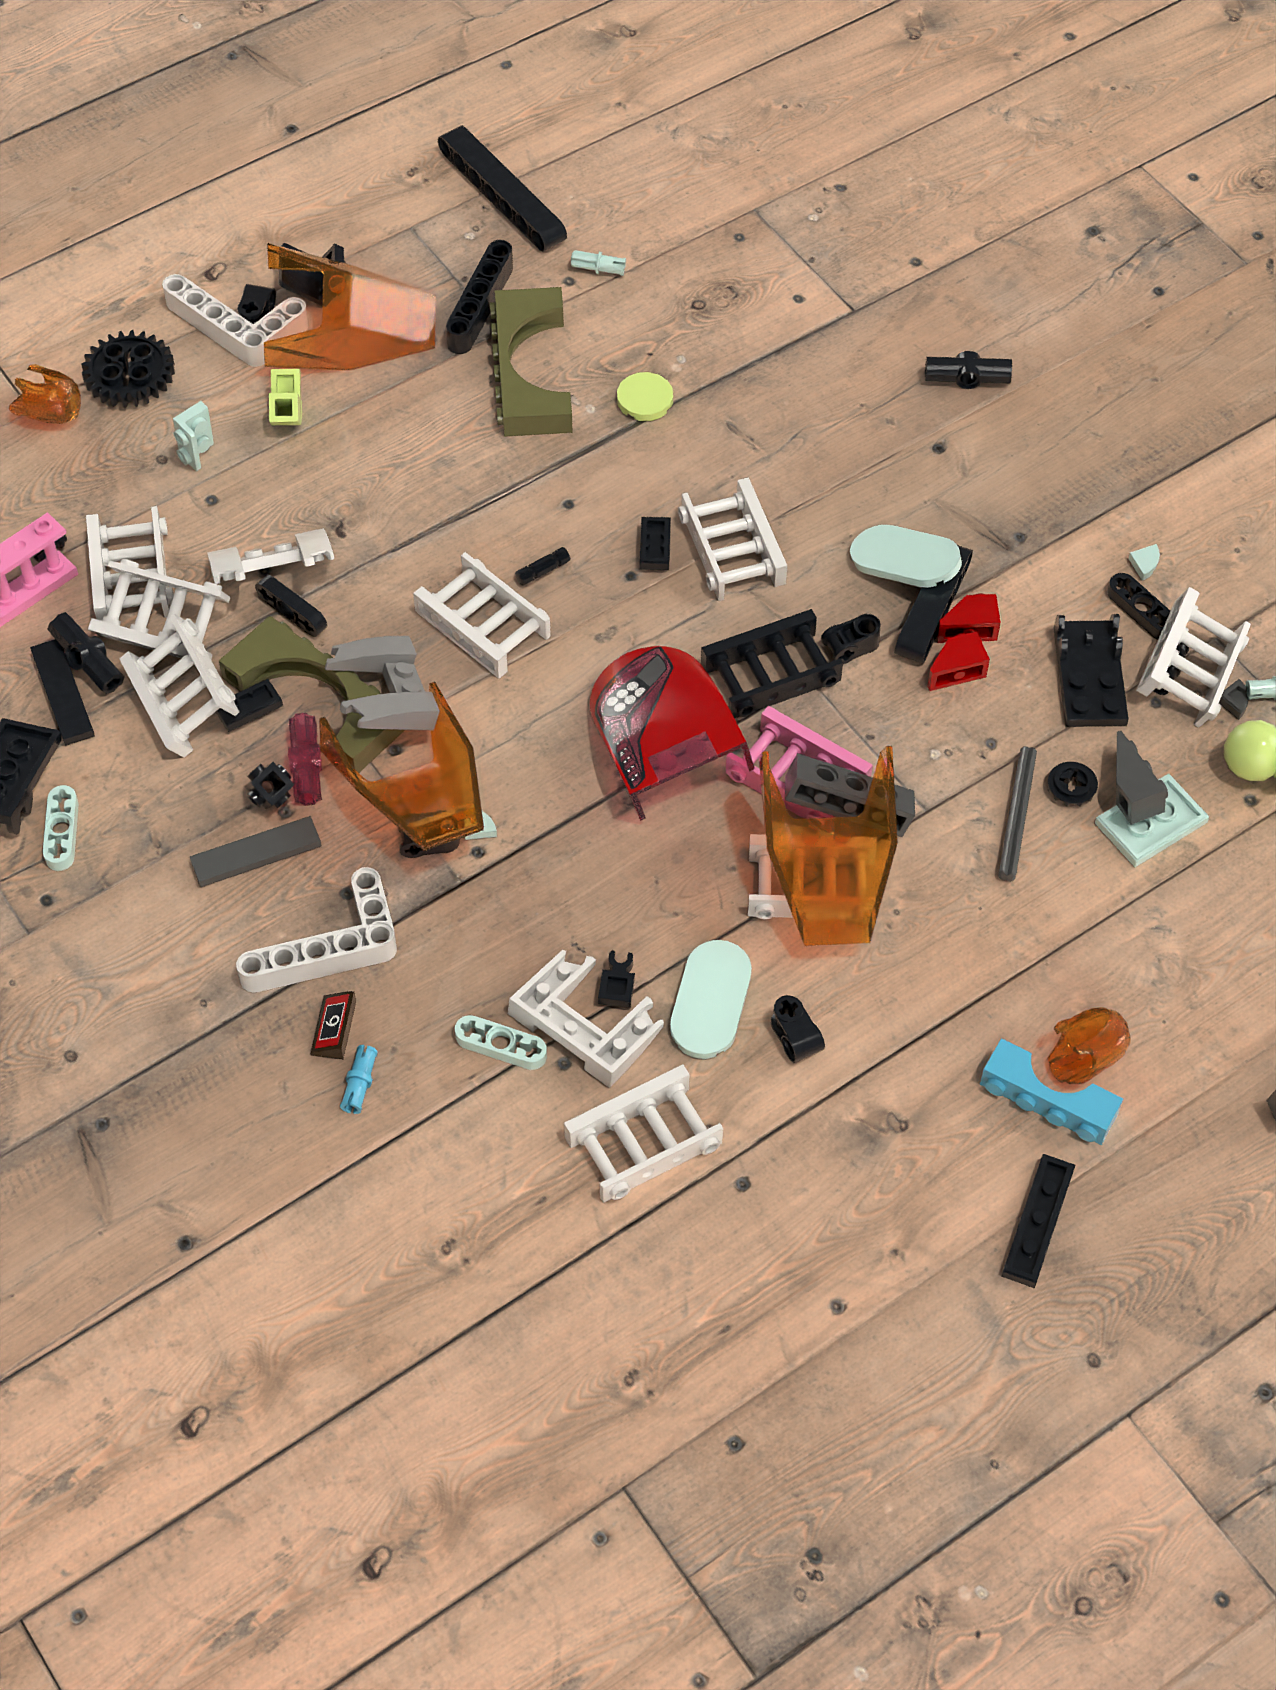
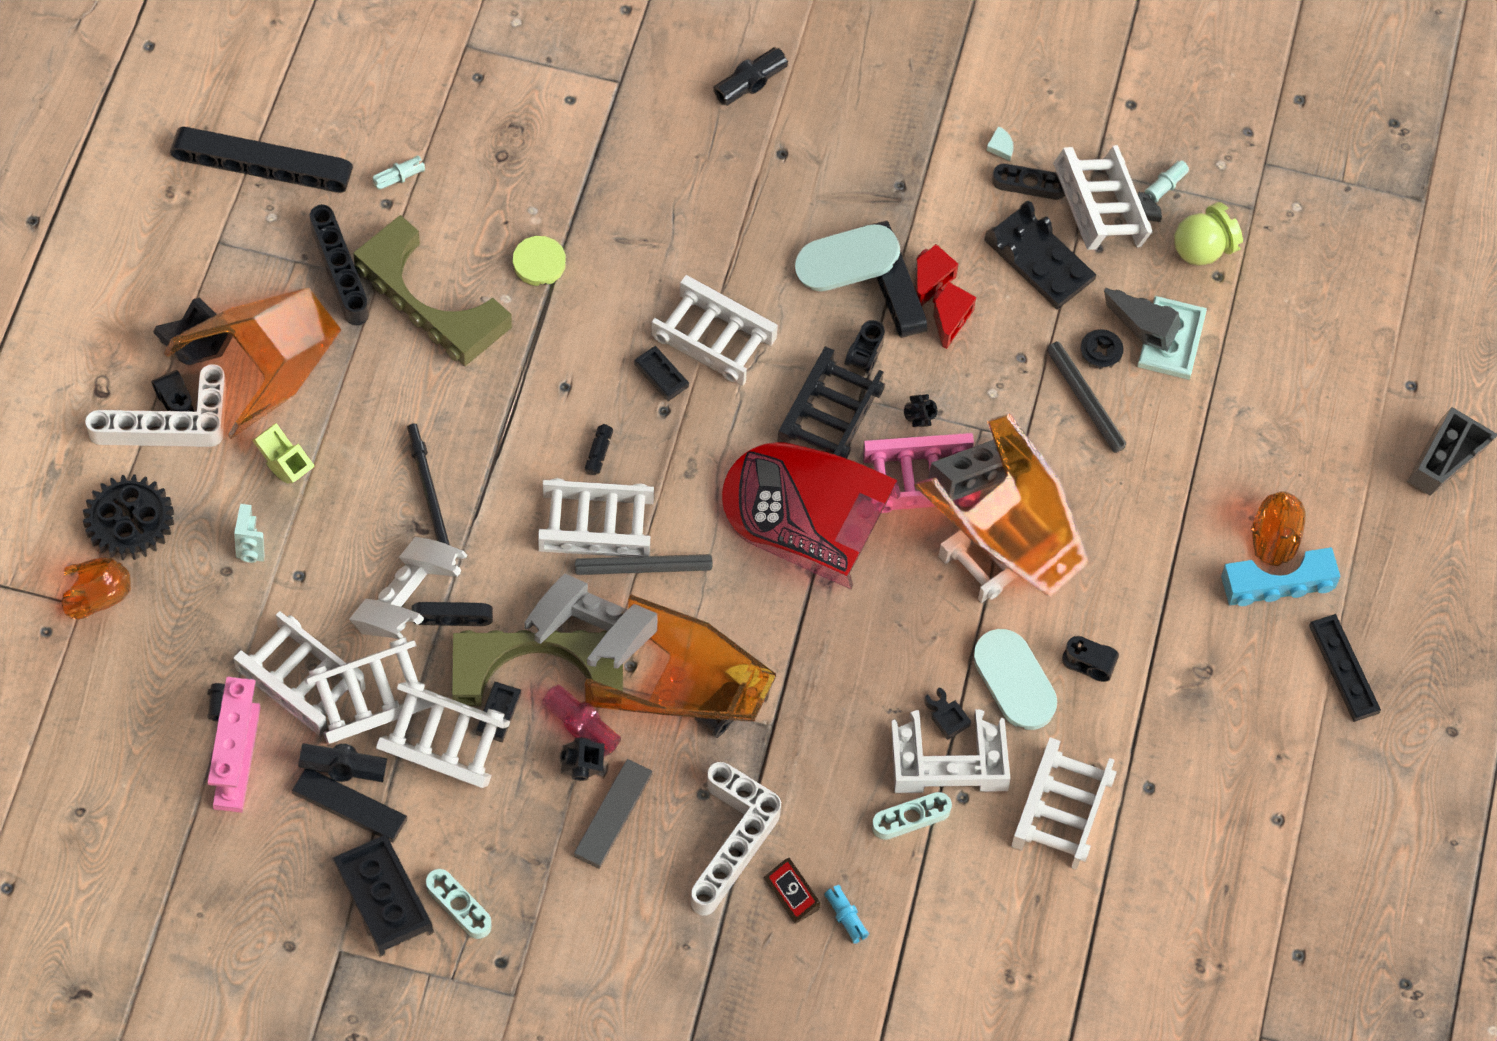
camera: 45 degrees left, 5 degrees up
(396, 472) = (419, 452): none -> black bar
(486, 678) = (643, 564): none -> dark grey axle
(848, 719) = (920, 410): none -> black gear

